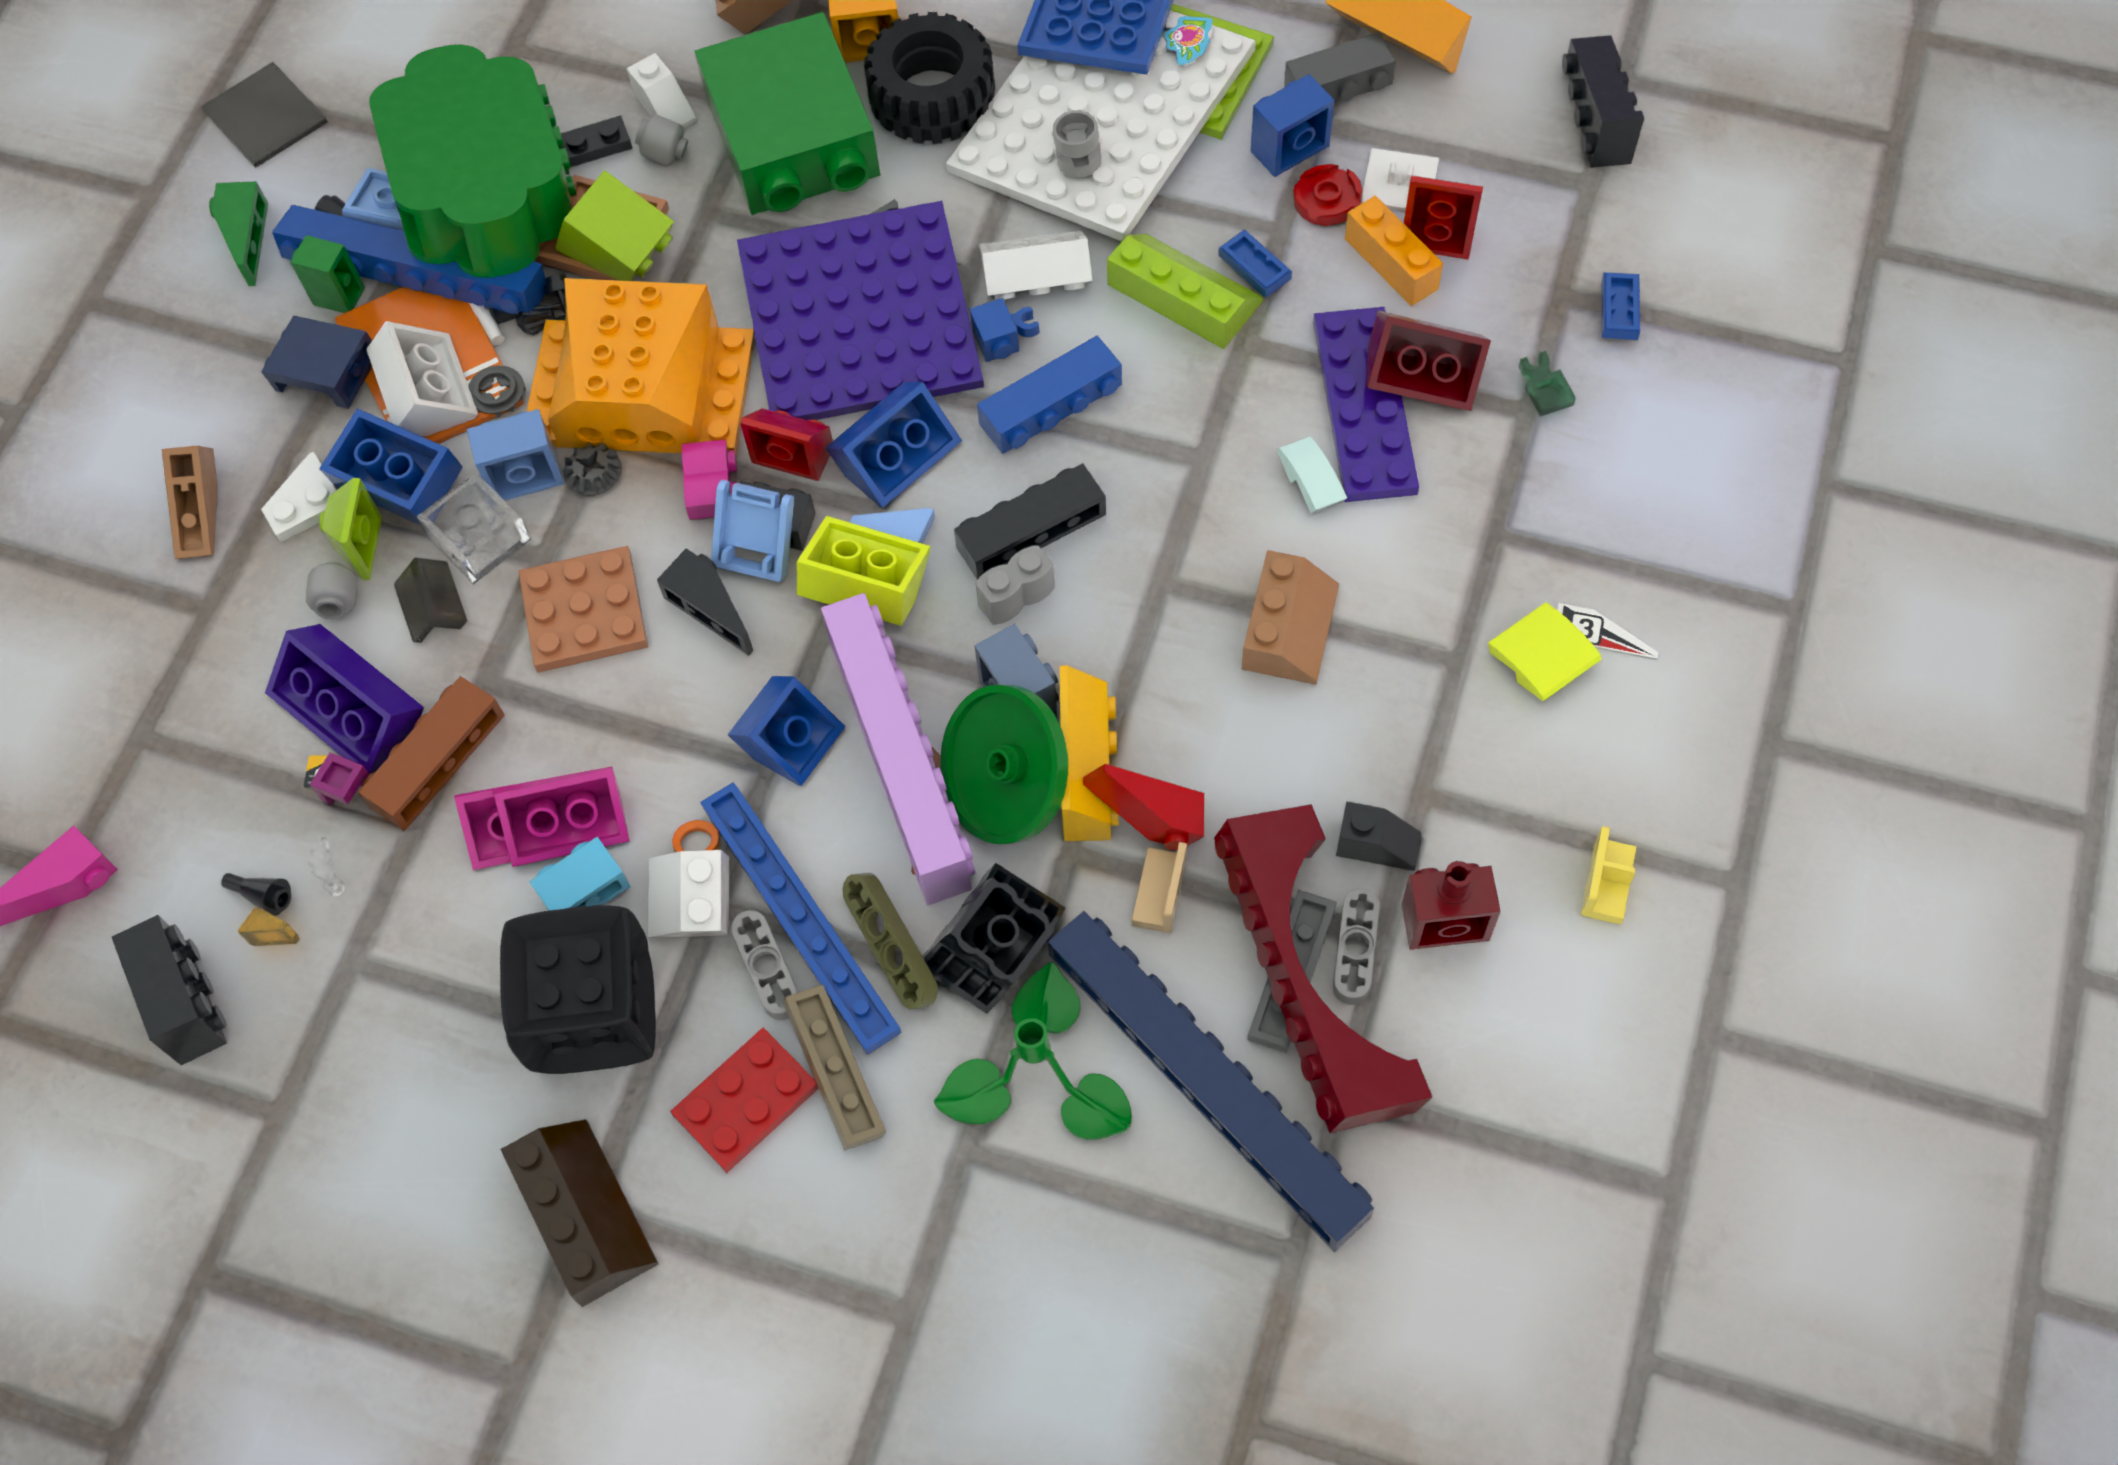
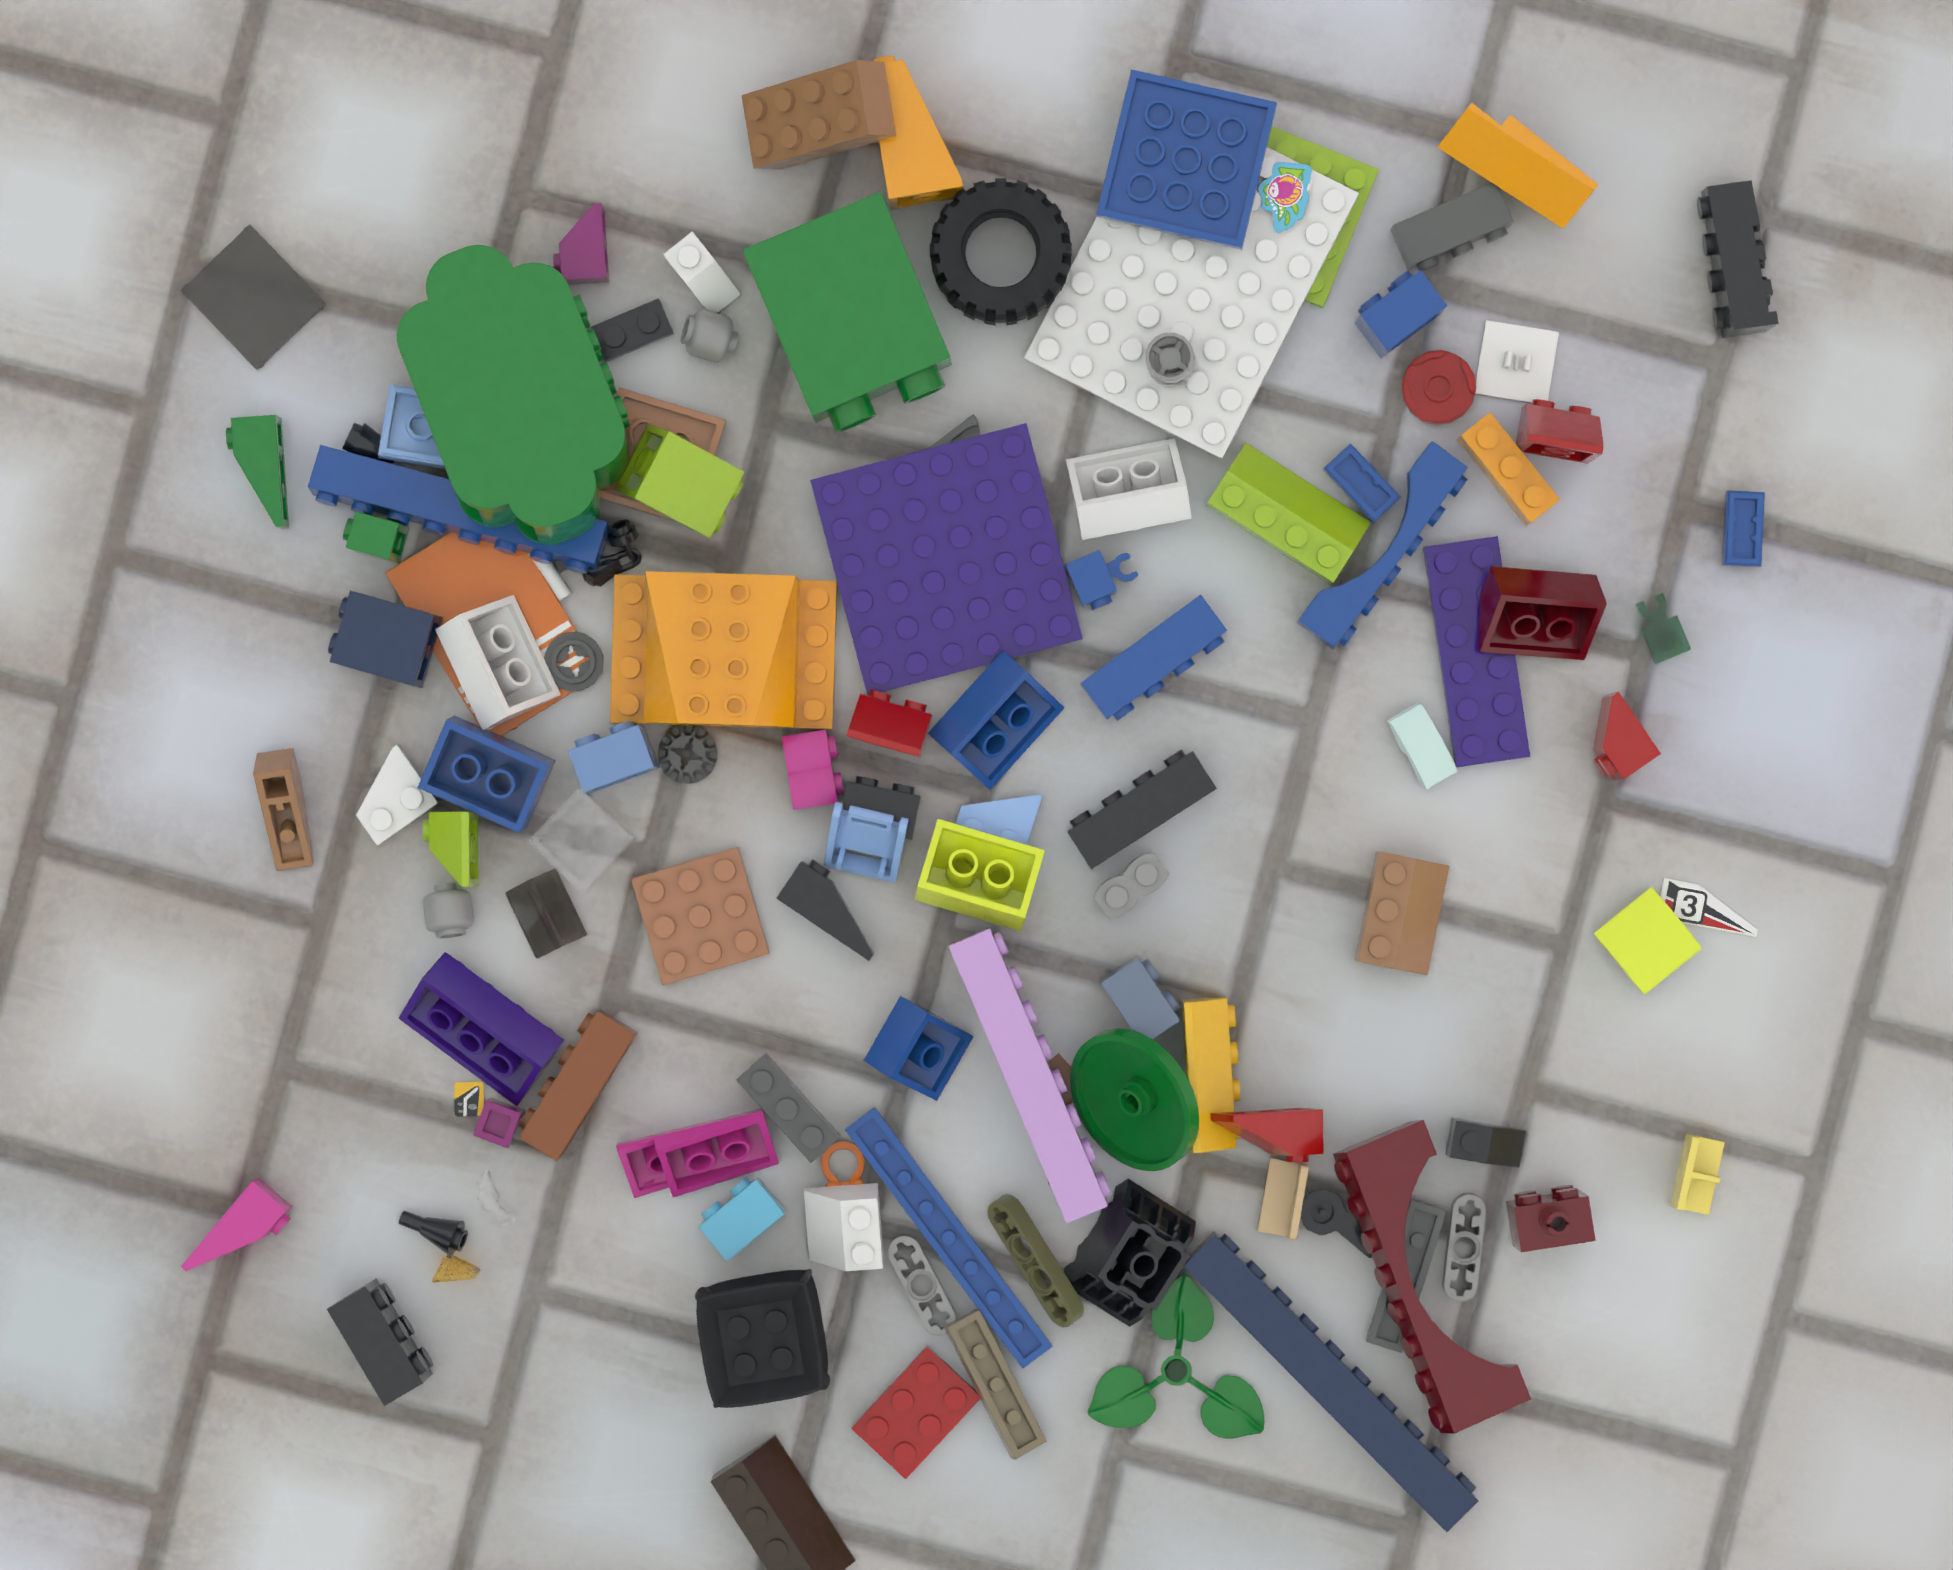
camera: 10 degrees left, 25 degrees up
(563, 75) = (584, 250): none -> magenta slope
(644, 778) = (788, 1107): none -> dark grey brick
(1205, 904) = (1325, 1213): none -> black piece
(1231, 356) = (1428, 484): none -> blue arch
(1513, 465) = (1621, 740): none -> red slope

